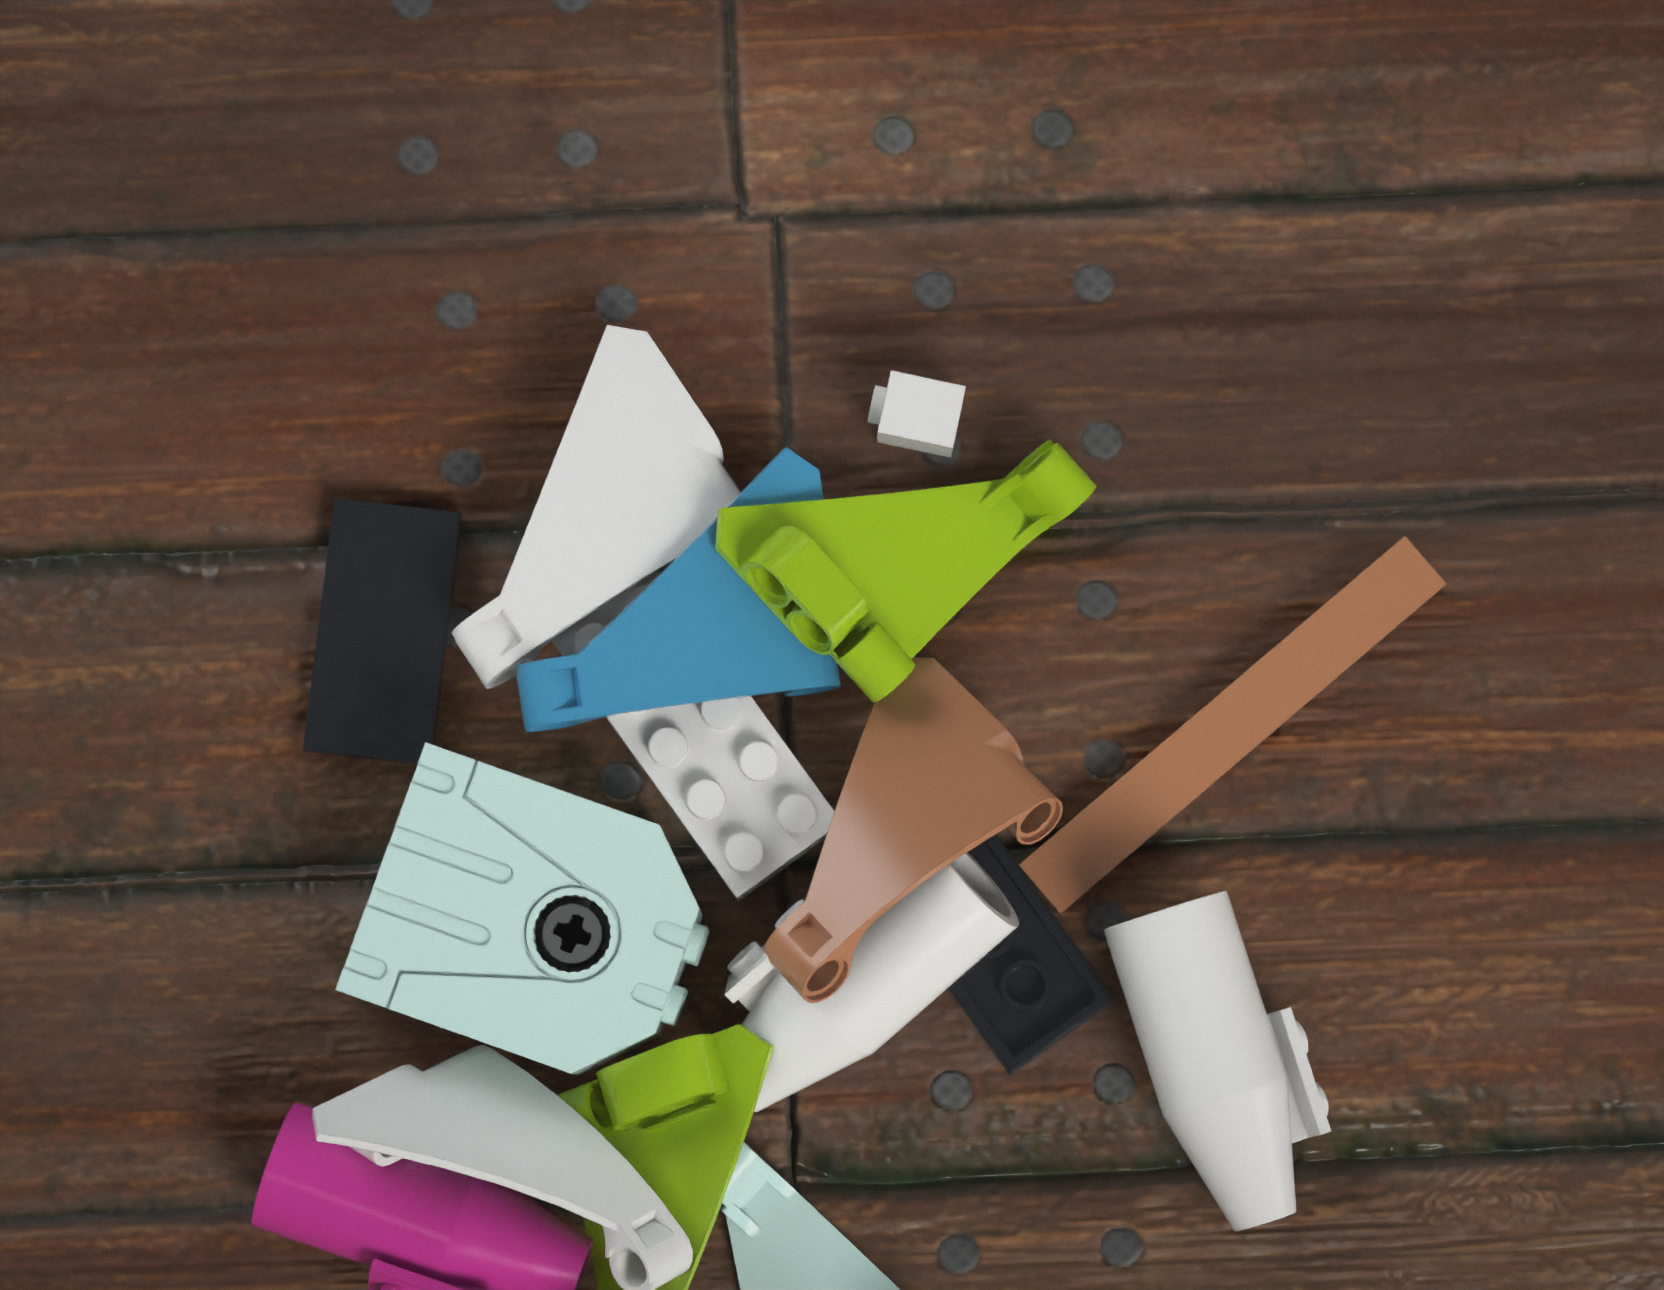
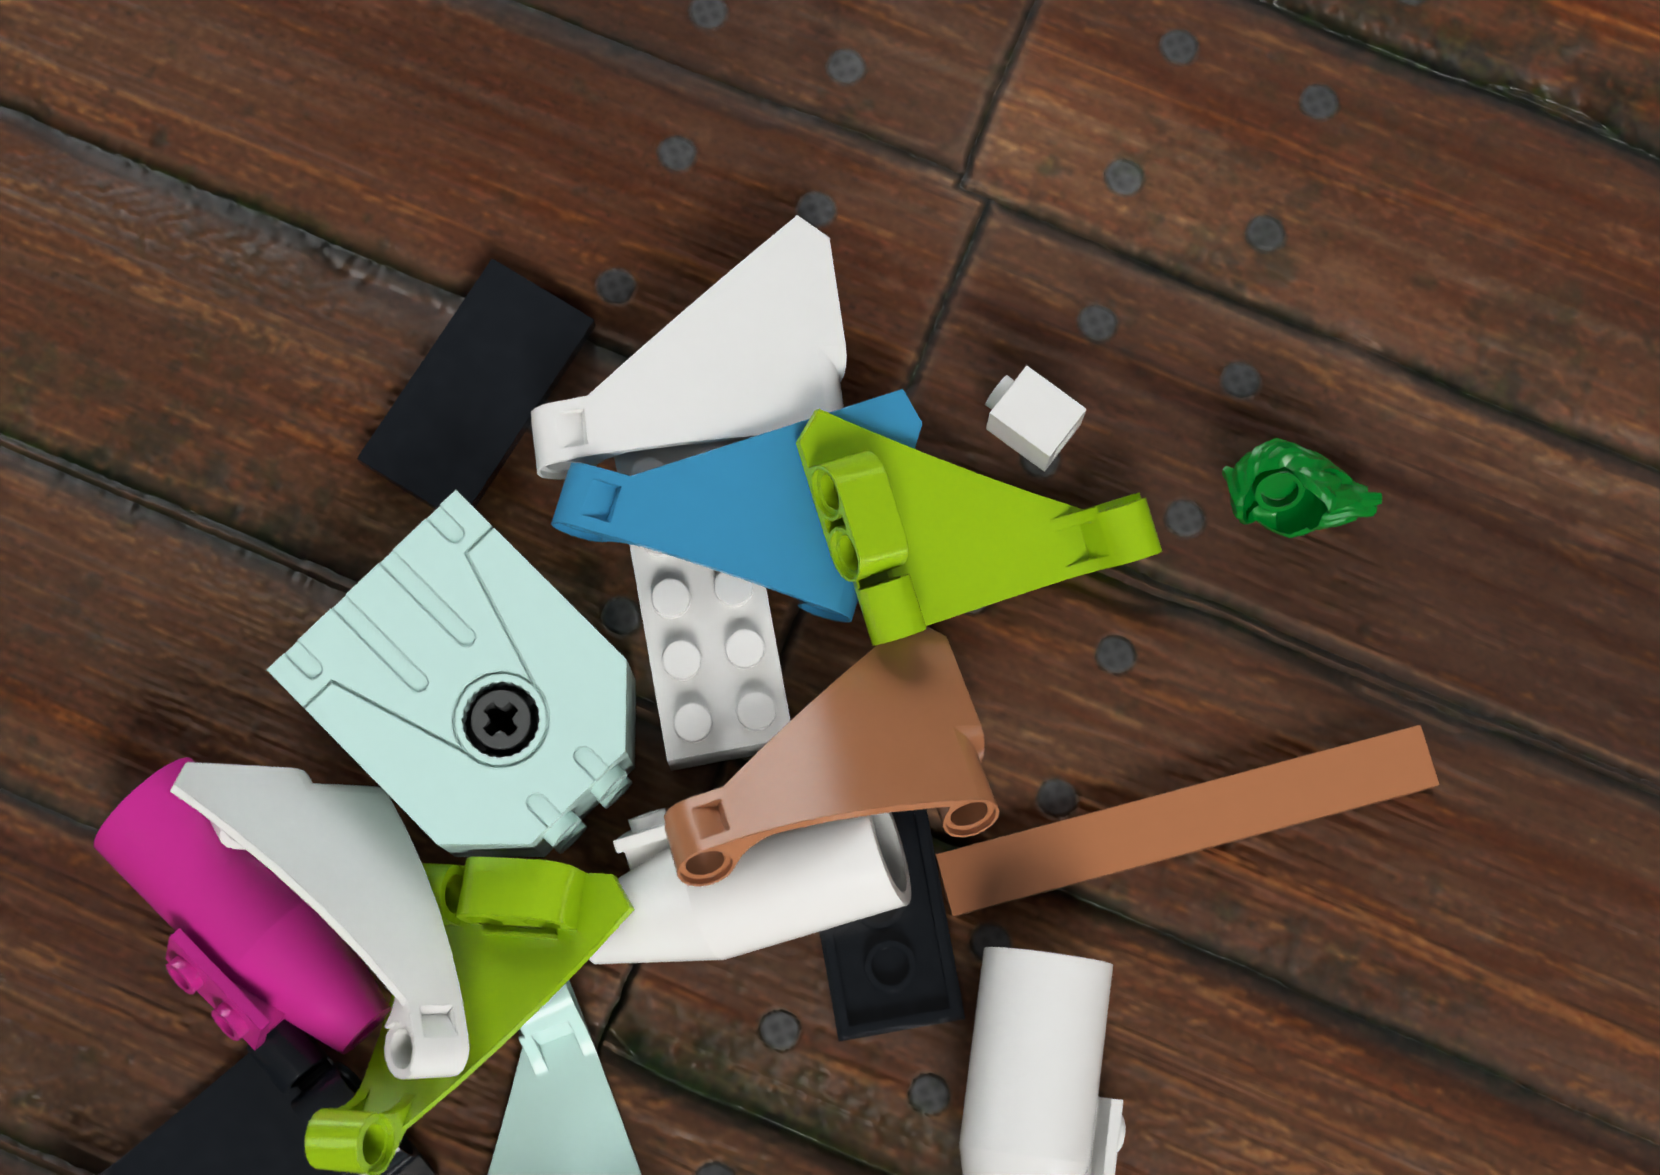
camera: 25 degrees right, 5 degrees down
(1192, 370) = (1295, 490): none -> green hair

